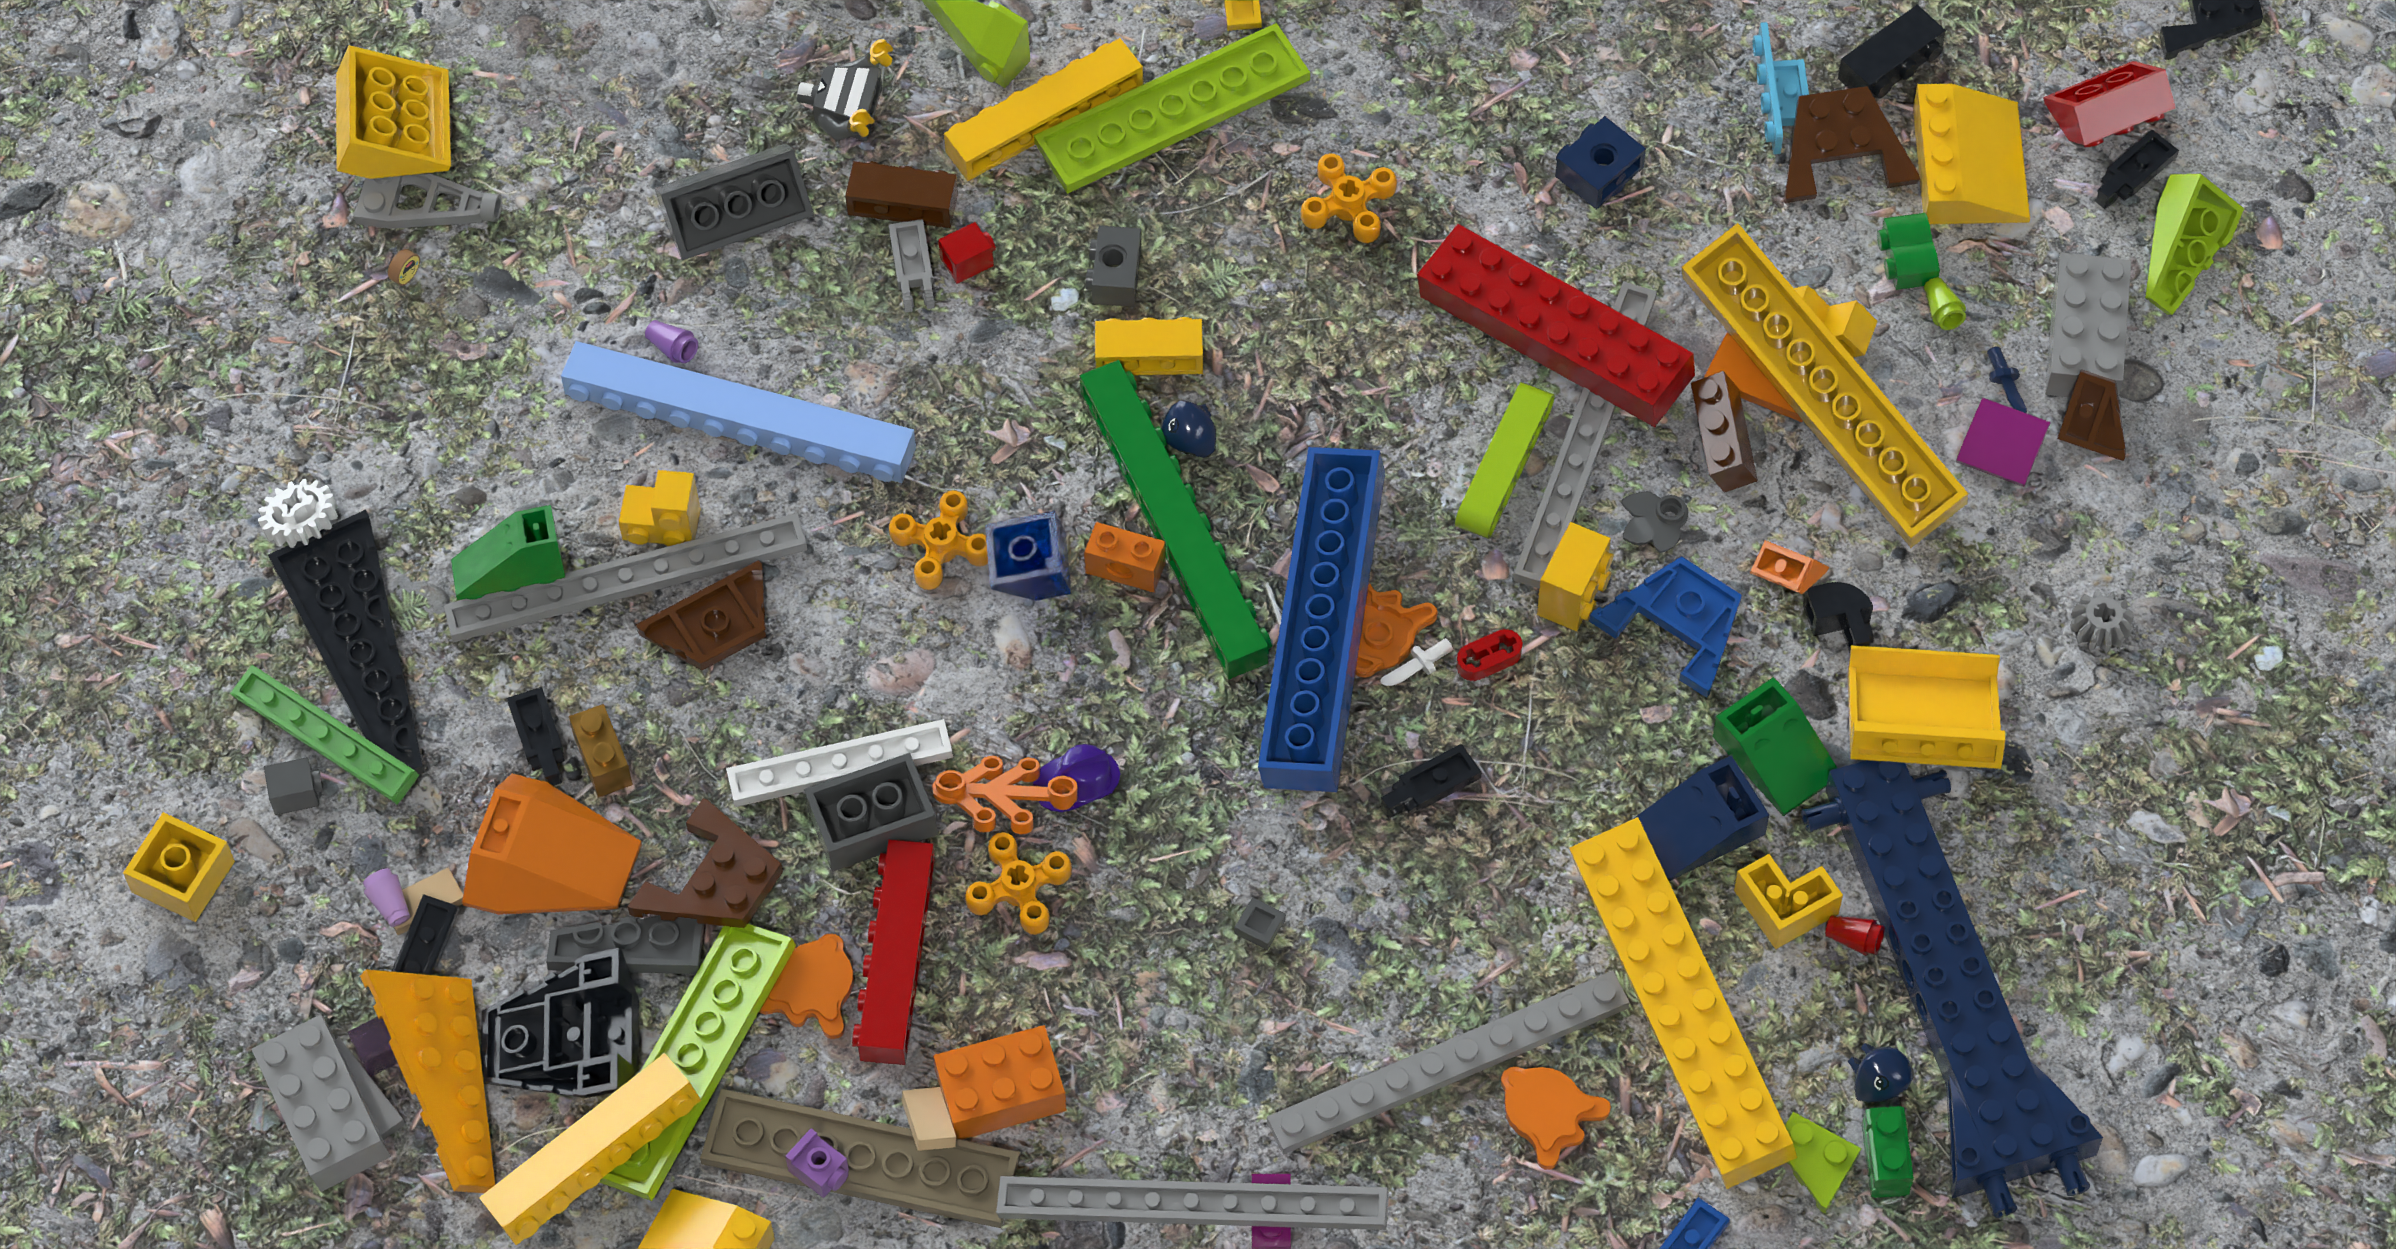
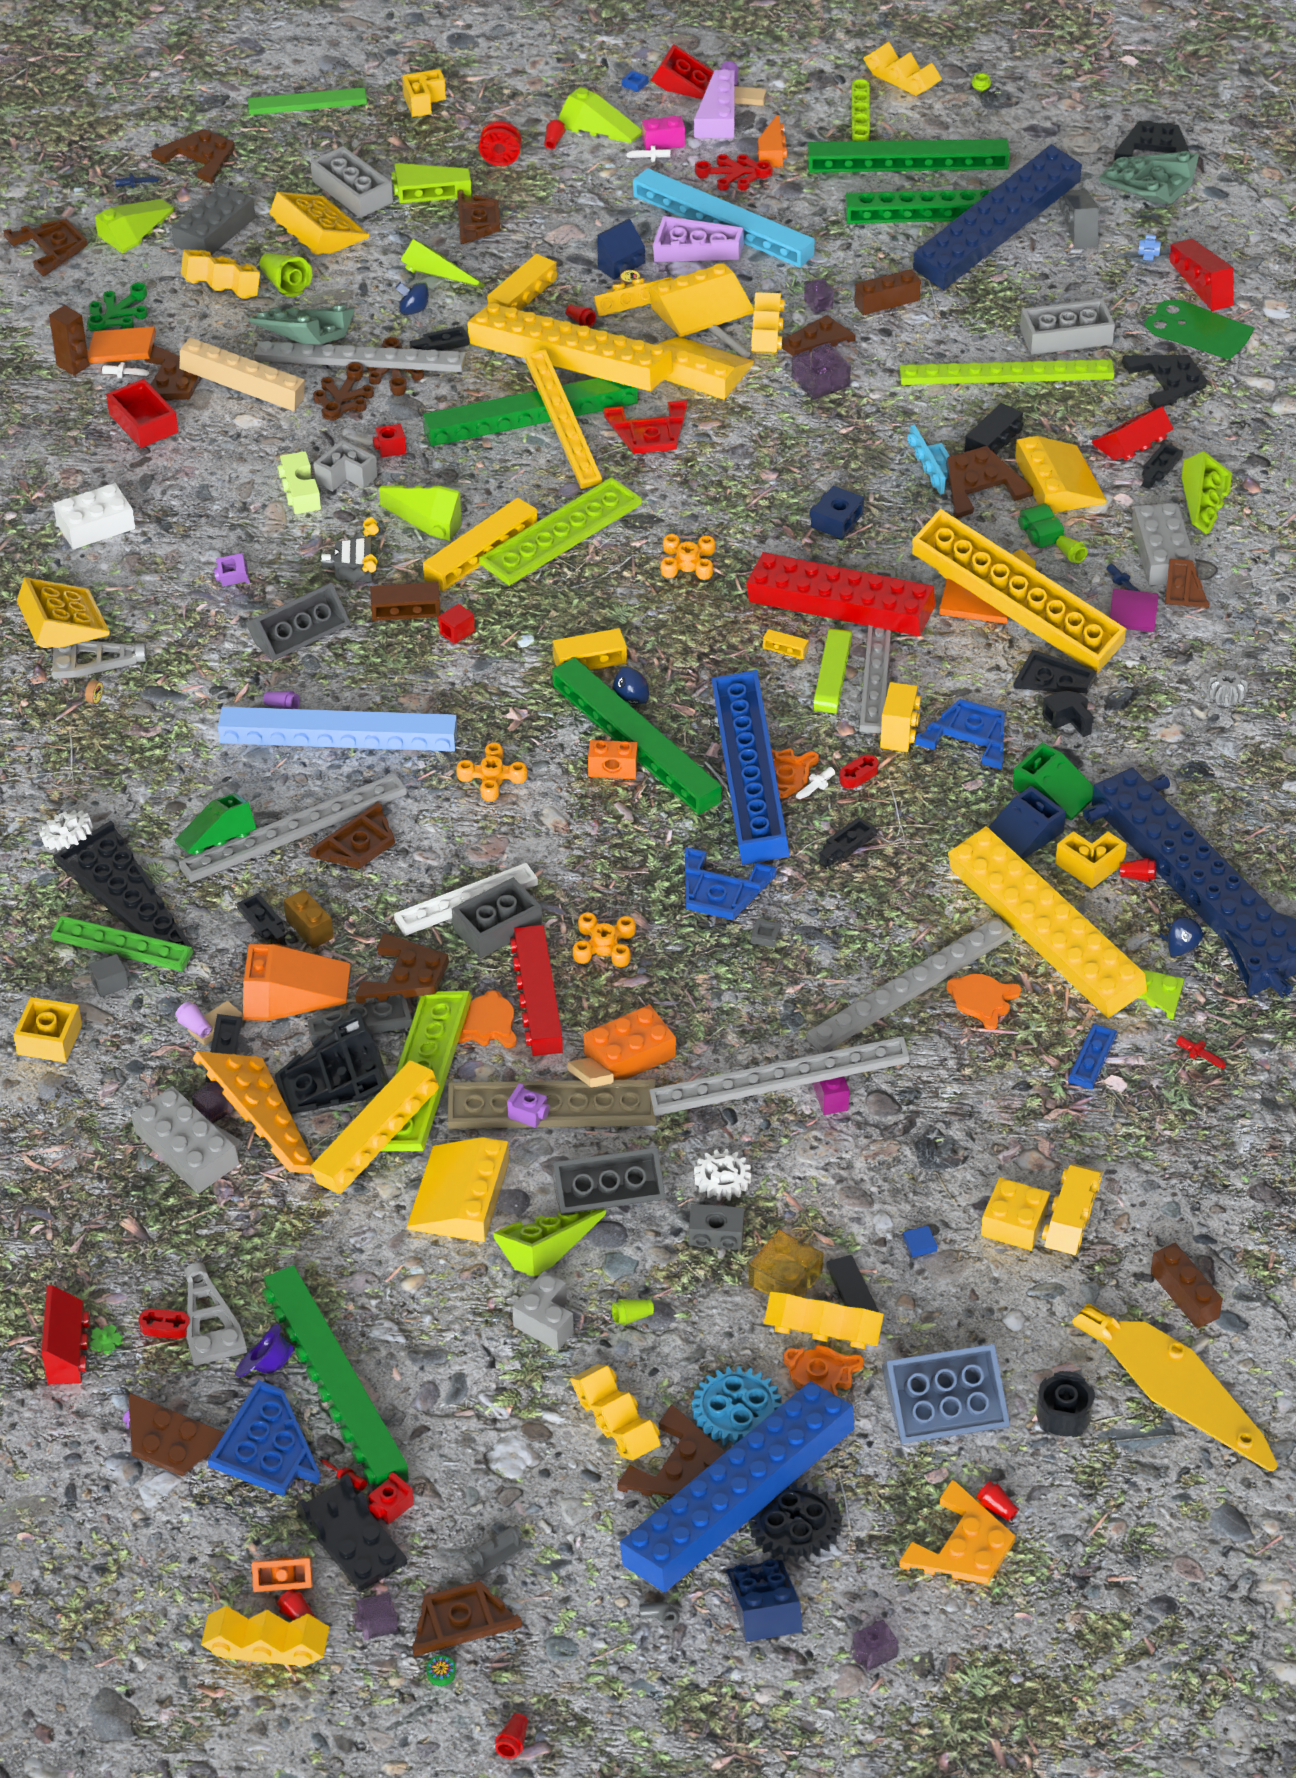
camera: 15 degrees left, 15 degrees down
(654, 75) = (232, 570): none -> medium lavender brick
(663, 512) = (308, 788): yellow brick -> none
(912, 261) = (423, 635): light grey hinge -> none
(961, 789) = (579, 892): orange plant -> none
(1028, 556) = (553, 767): clear blue slope -> none
(1090, 767) = (621, 880): dark purple piece -> none
(1114, 284) = (554, 614): dark grey brick -> none
(1212, 835) = (718, 893): none -> blue wing
(1449, 392) = (785, 644): none -> yellow piece
(1649, 521) = (936, 685): dark grey plate -> none
(1724, 432) = (963, 631): reddish brown brick -> none
(1787, 568) = (1027, 691): orange slope -> none
(1841, 539) = (1053, 674): none -> black wing
(1887, 1152) = (1201, 975): green brick -> none
(1924, 707) = (1138, 743): yellow panel -> none

